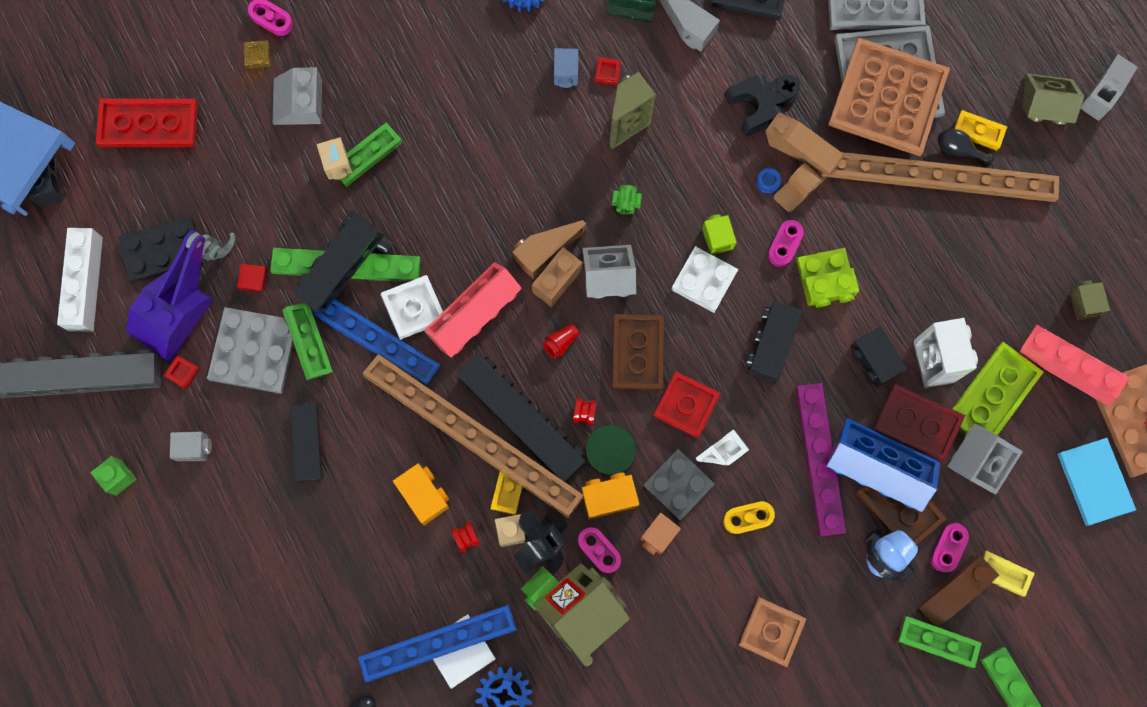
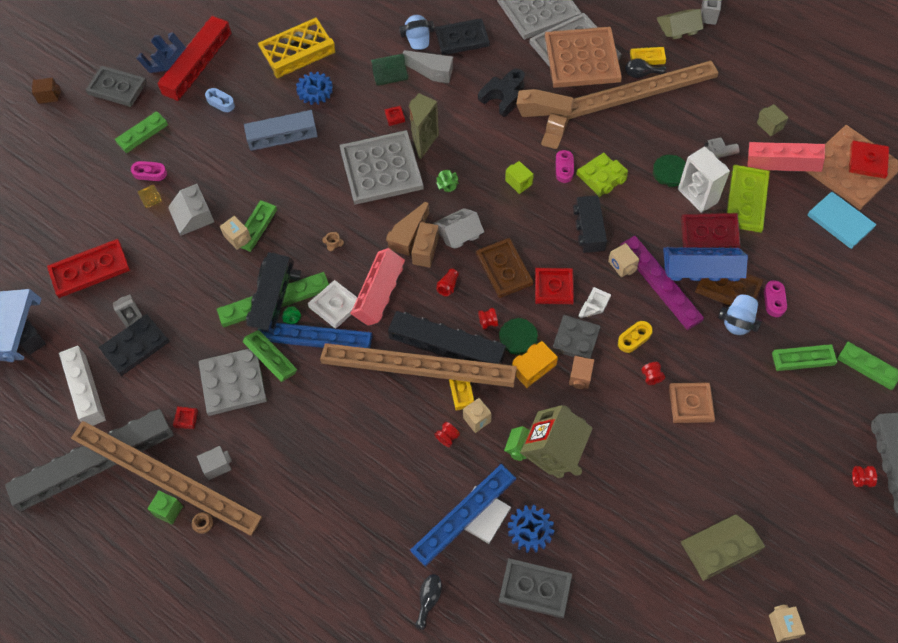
camera: 20 degrees left, 15 degrees down
(126, 443) = (167, 478): none -> medium nougat plate
(141, 508) = (198, 519): none -> medium nougat plate
(167, 203) = (127, 310): none -> light grey slope
(173, 303) = (159, 371): dark purple slope -> none
(252, 278) = (209, 334): red tile -> none
(306, 443) = (300, 425): black tile -> none
(355, 298) = (291, 315): none -> green plate
(421, 493) = (401, 419): light orange brick -> none
(453, 212) = (332, 236): none -> medium nougat plate
(454, 30) = (280, 130): none -> sand blue brick
(543, 541) = (504, 411): black piece -> none
(554, 140) = (381, 167): none -> light grey plate
(565, 67) = (366, 122): sand blue brick -> none
(599, 550) = (546, 399): dark pink plate -> none
(704, 279) = (524, 208): white plate -> none
(744, 575) = (653, 373): none -> red wheel
(768, 180) = (533, 135): blue tile -> none
(789, 411) = (623, 260): none -> tan brick
(877, 357) = (662, 204): black brick -> none
(916, 310) = (669, 170): none -> dark green tile
(958, 590) = (797, 318): reddish brown slope -> none
(984, 458) = (765, 233): light grey slope -> none
(995, 310) = (719, 149): none -> light grey piece
(1010, 575) = (819, 298): light yellow tile -> none

